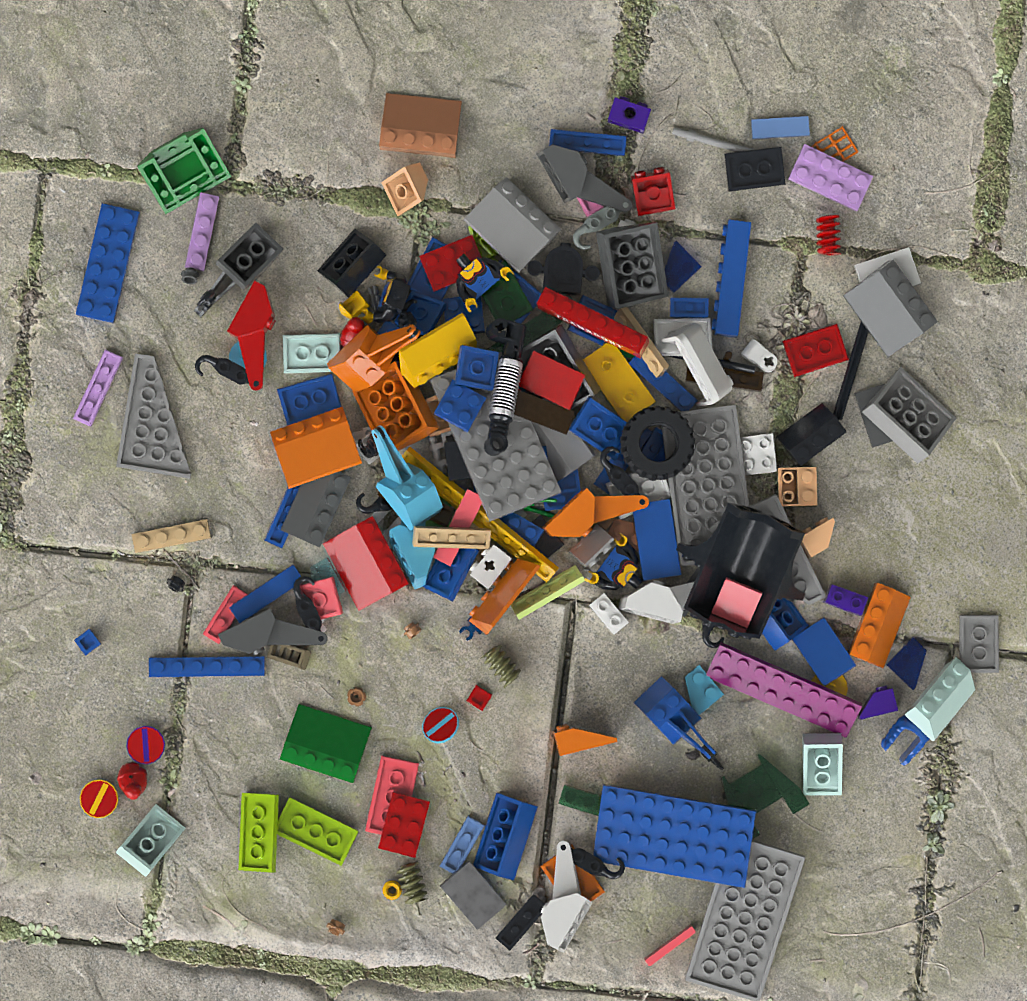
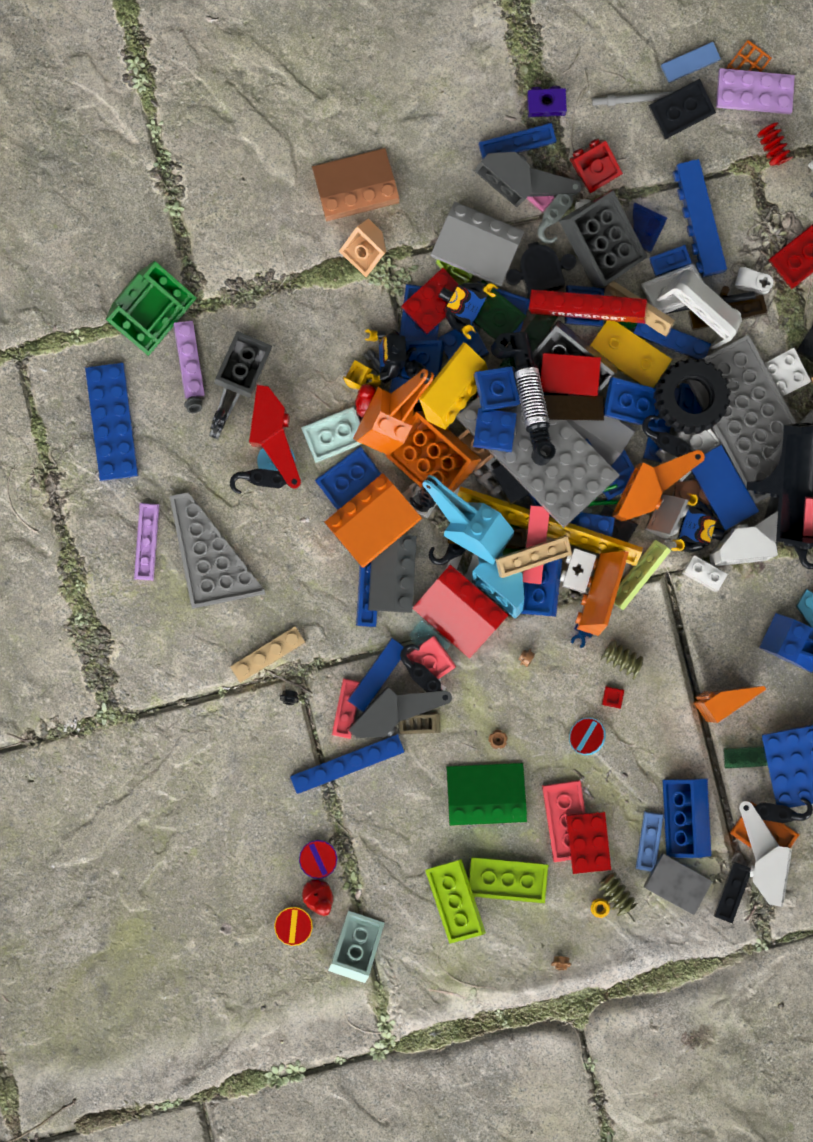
camera: 15 degrees left, 0 degrees up
(87, 642) = (227, 783): blue plate -> none
(352, 262) = (340, 335): black slope -> none

